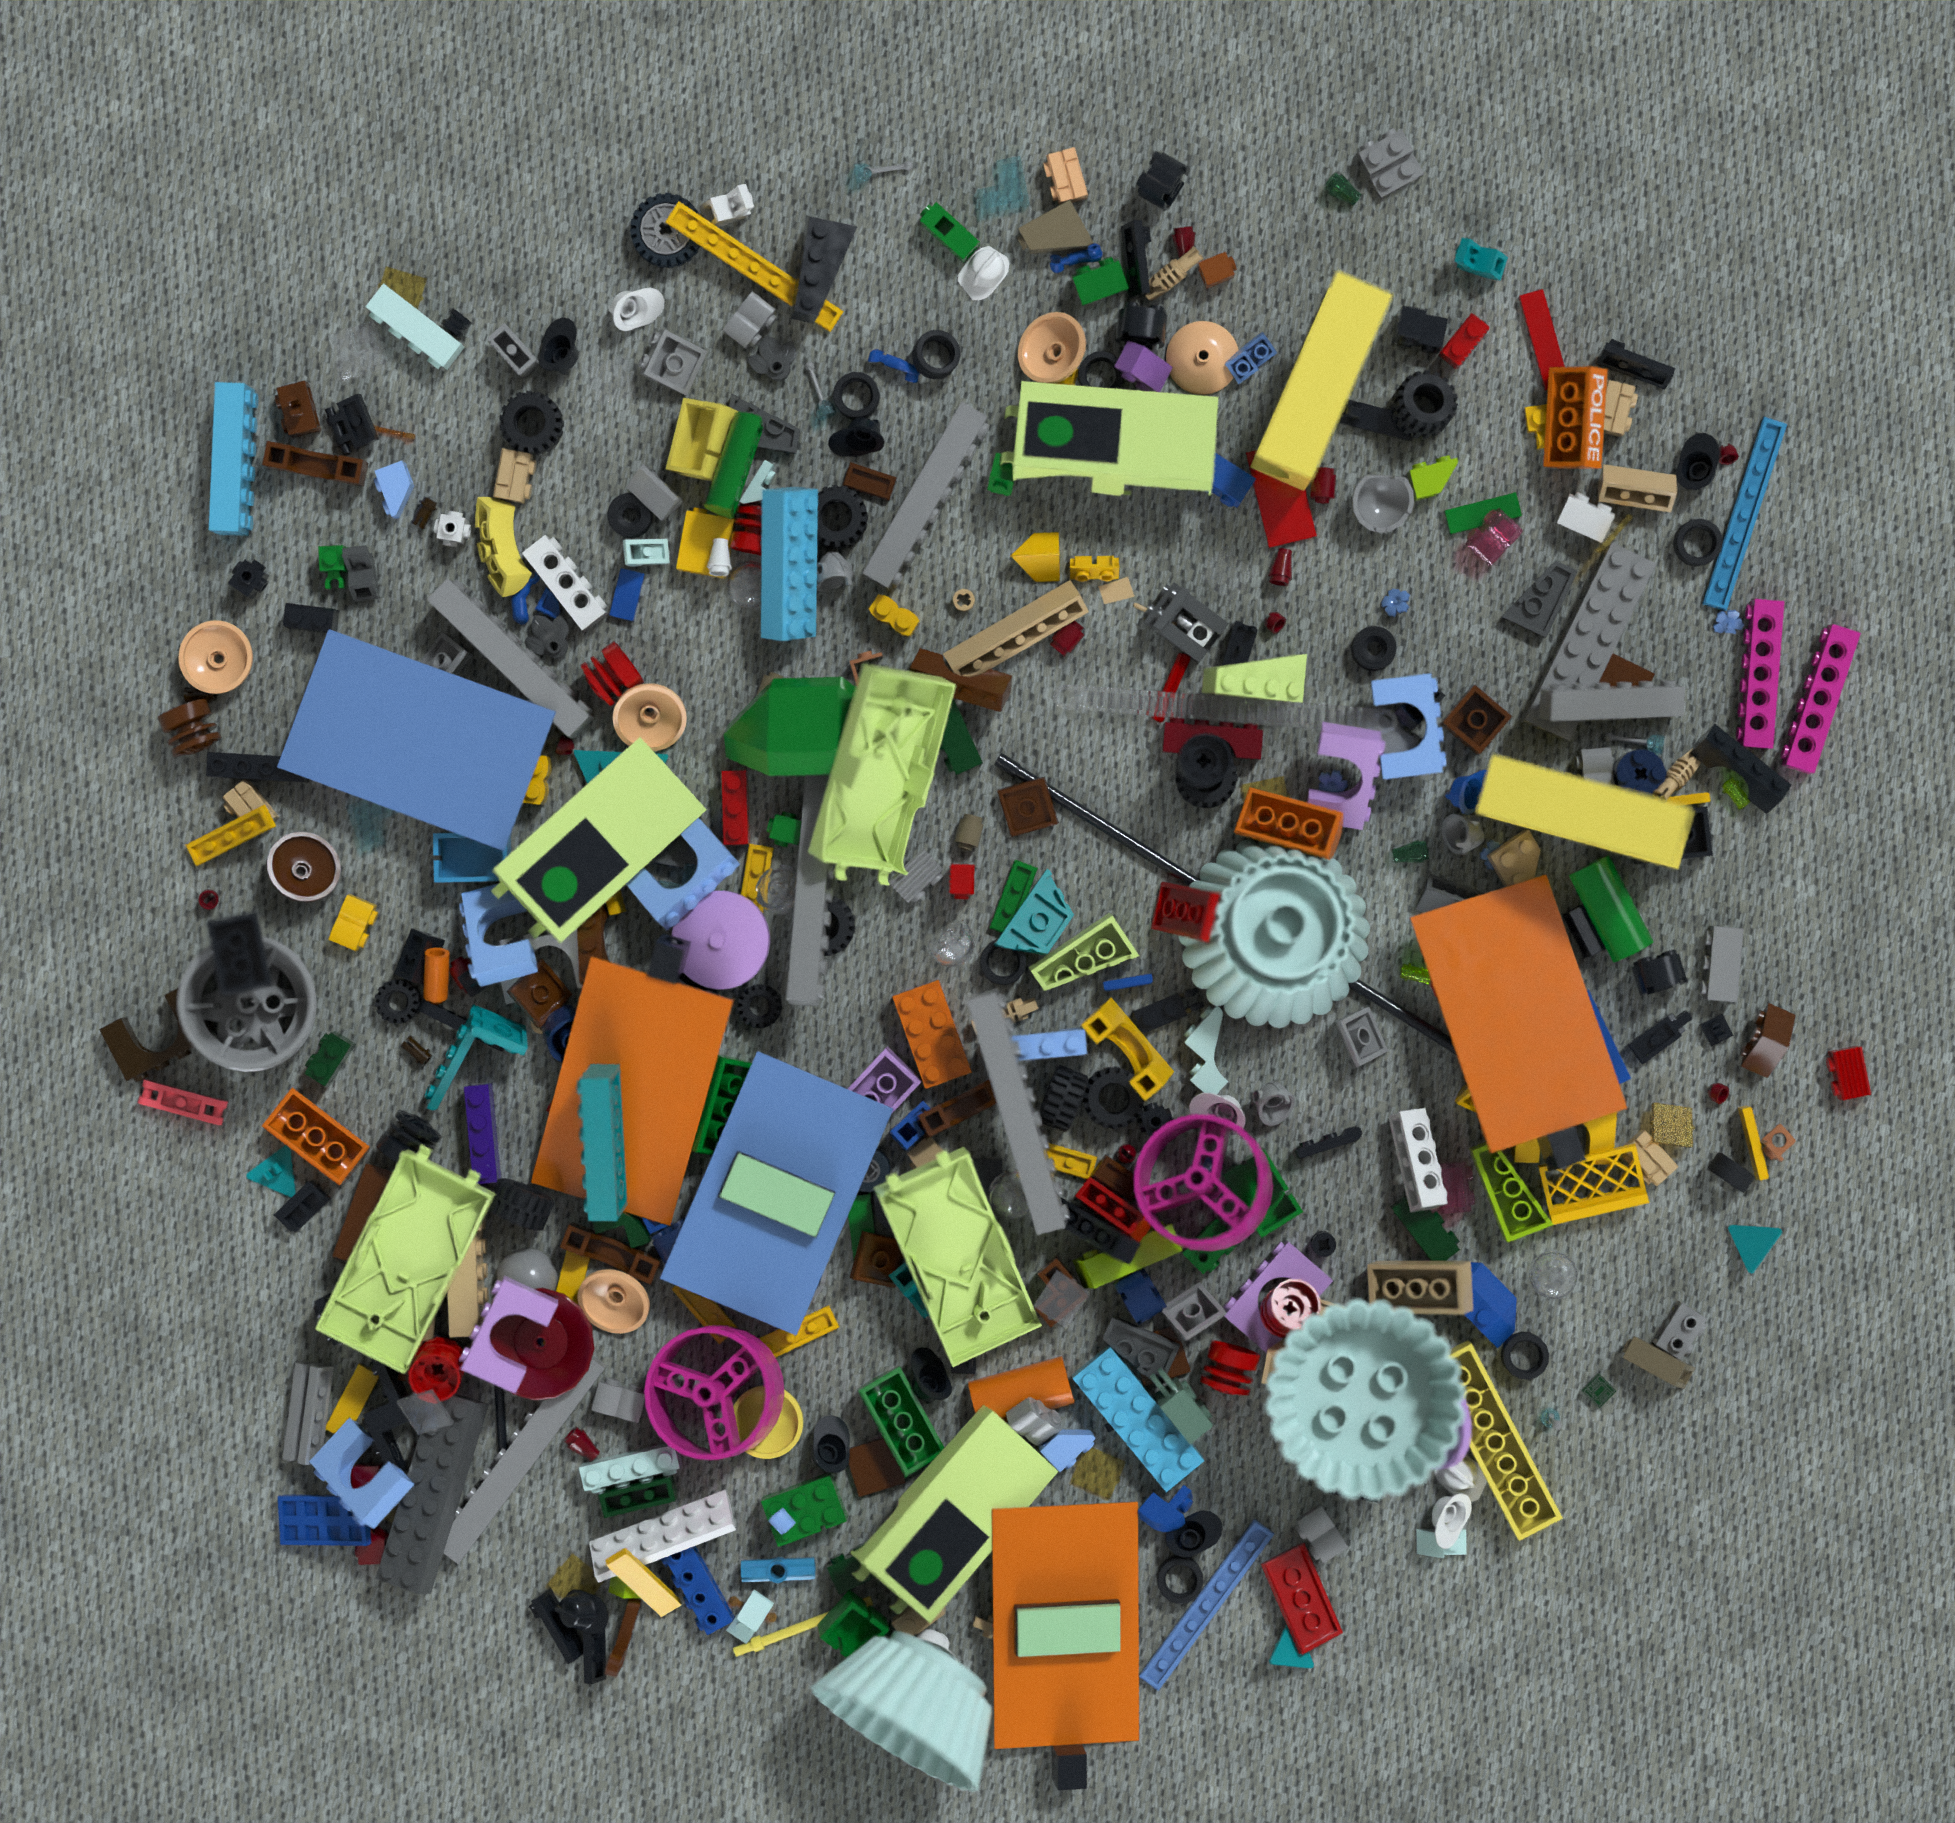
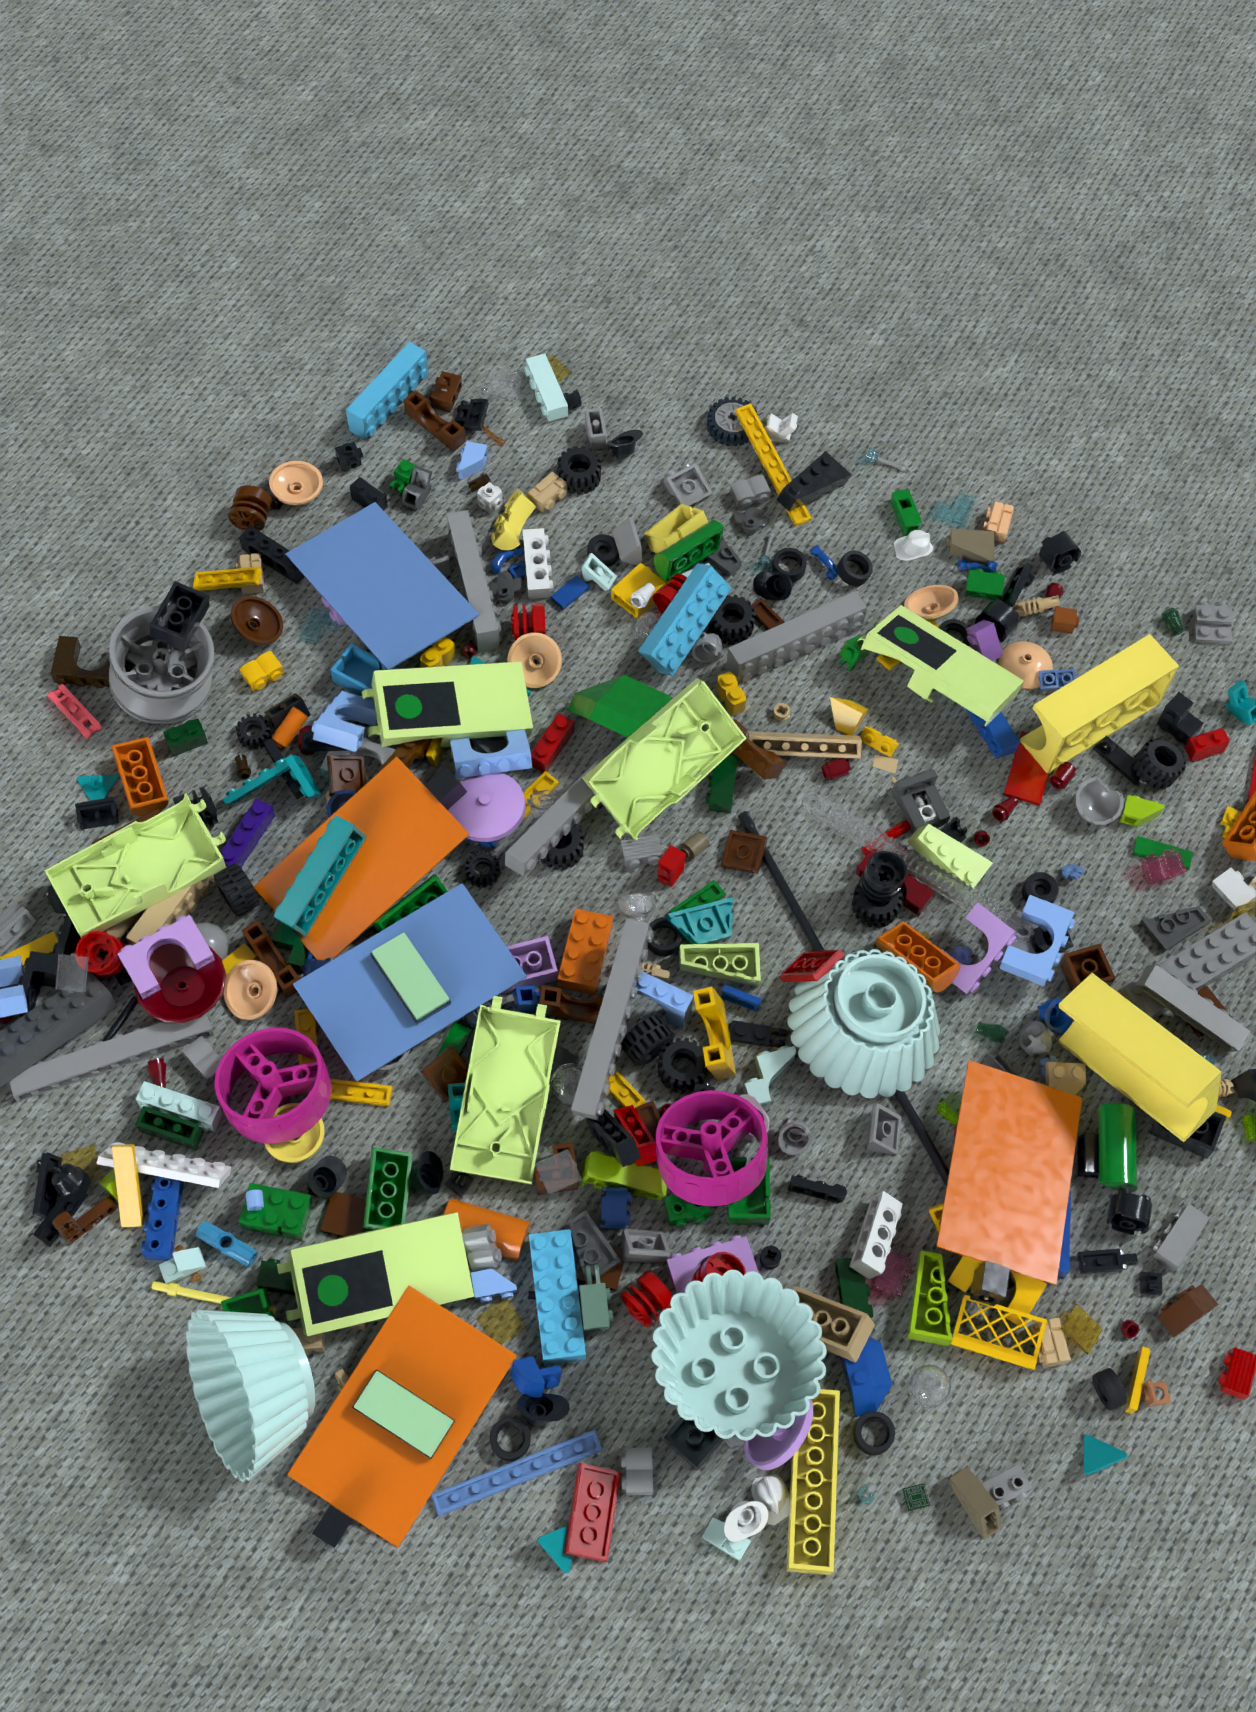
camera: 30 degrees right, 25 degrees down
(636, 308) = (686, 448): white piece -> none
(784, 829) = (572, 772): green brick -> none

